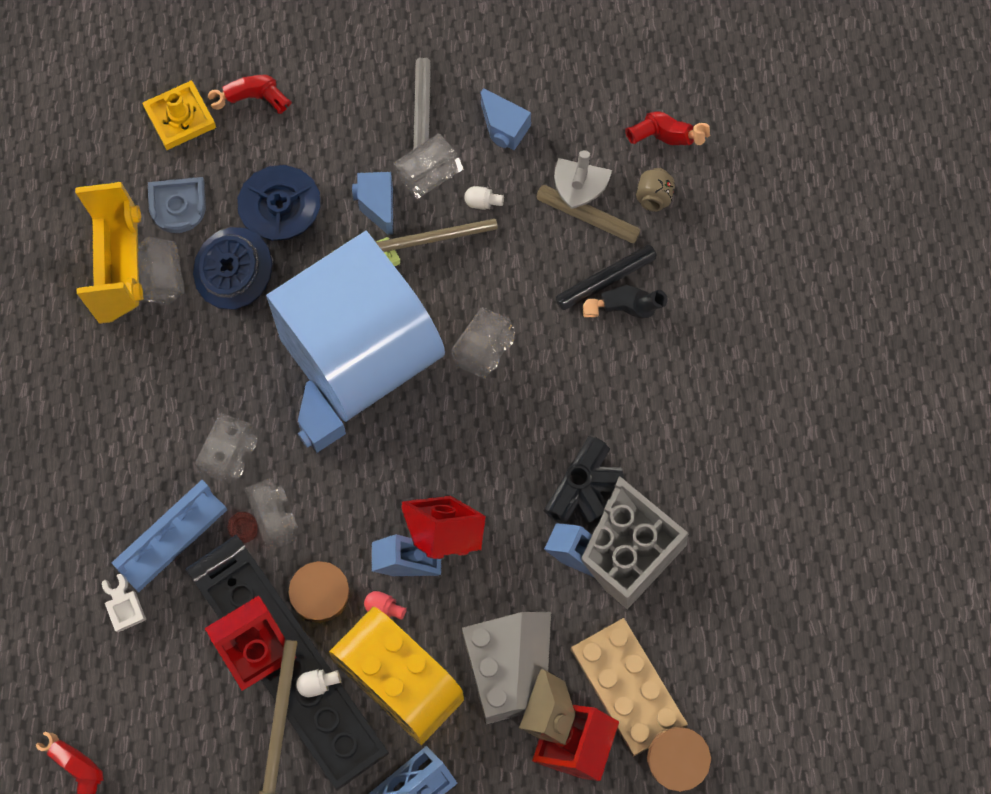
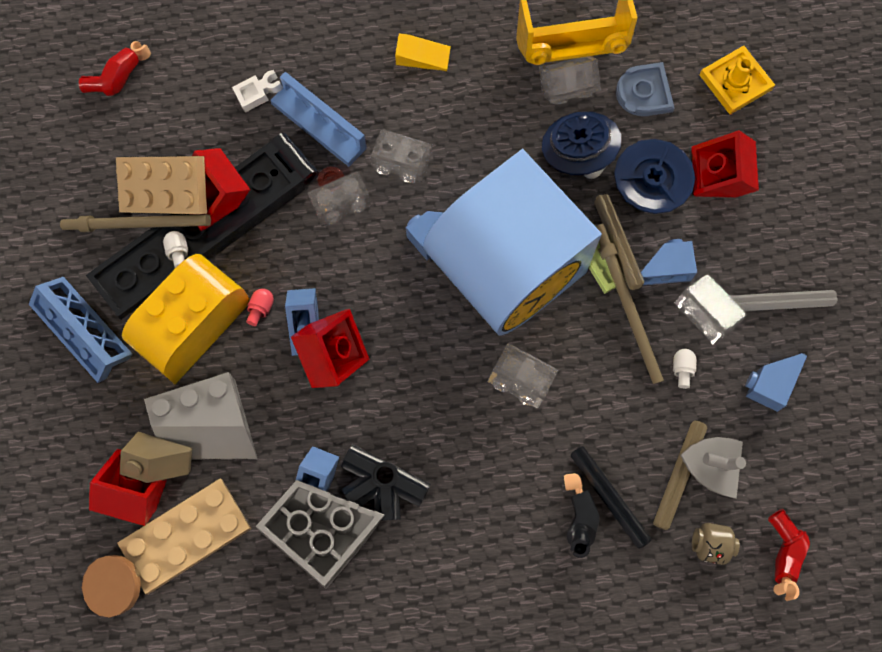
camera: 85 degrees right, 5 degrees up
(99, 424) = (421, 53): none -> yellow slope
(239, 697) = (161, 184): none -> tan plate
(251, 87) = (776, 138): red arm -> none
(276, 136) = (725, 166): none -> red slope
(319, 591) = (272, 249): medium nougat tile -> none
(323, 248) = (617, 236): none -> dark tan axle

